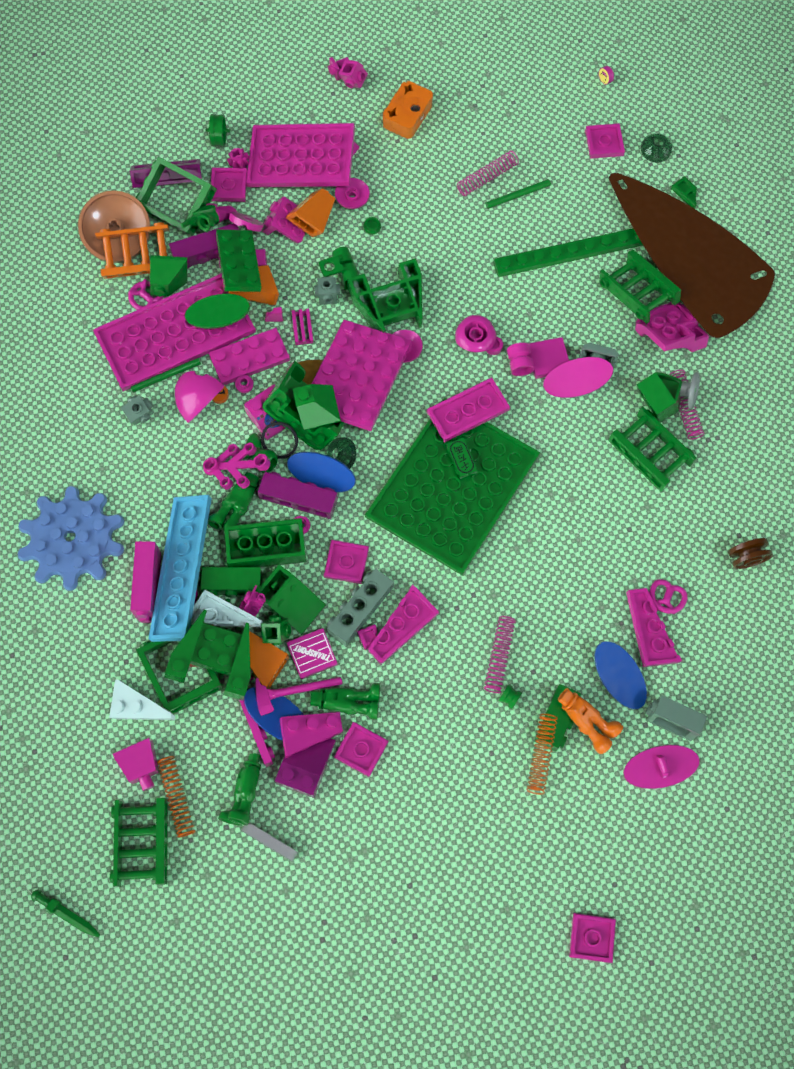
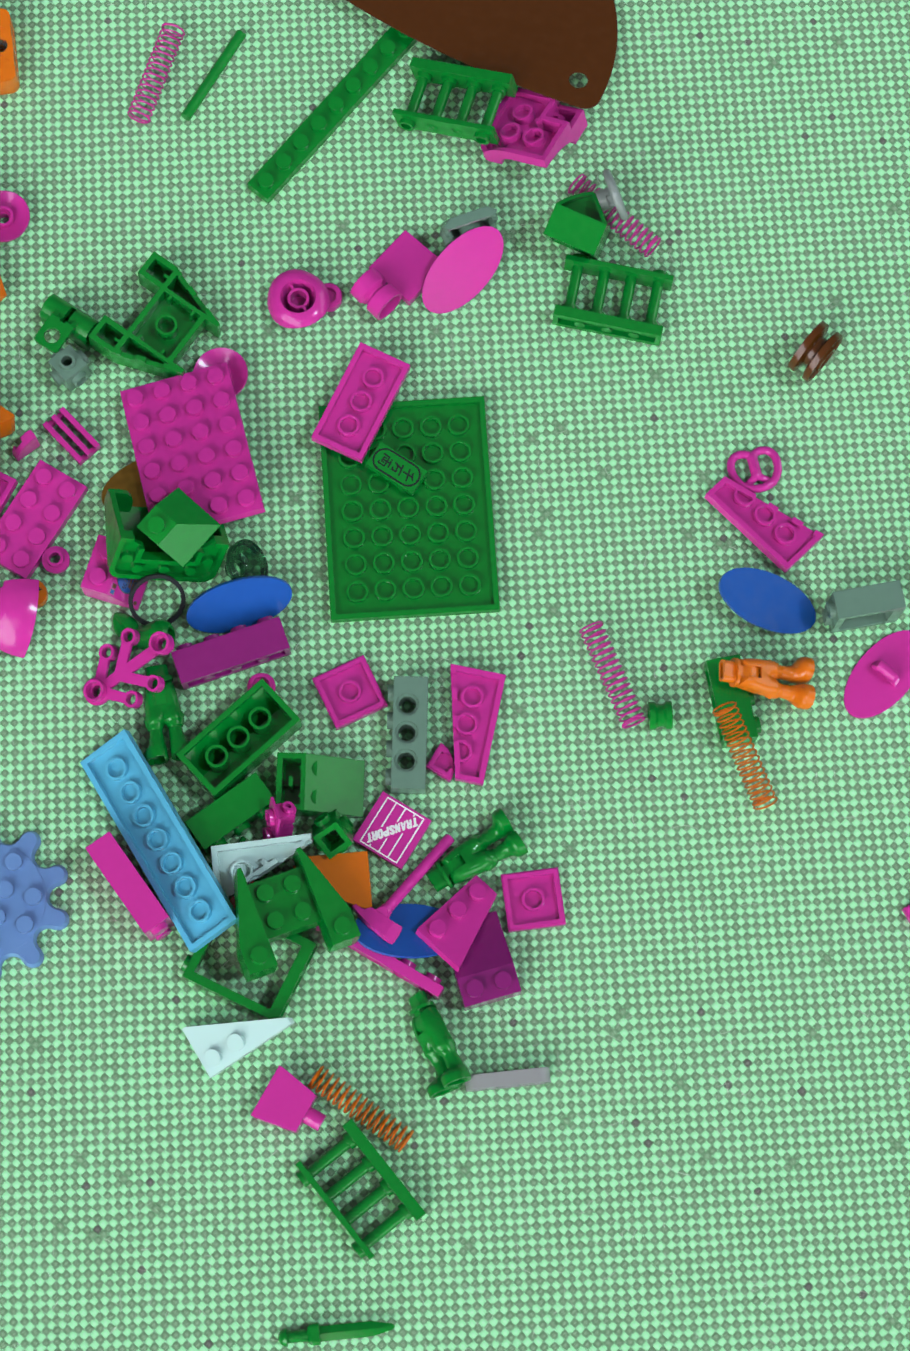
camera: 35 degrees left, 5 degrees up
(372, 225) = (60, 242): green plate -> none

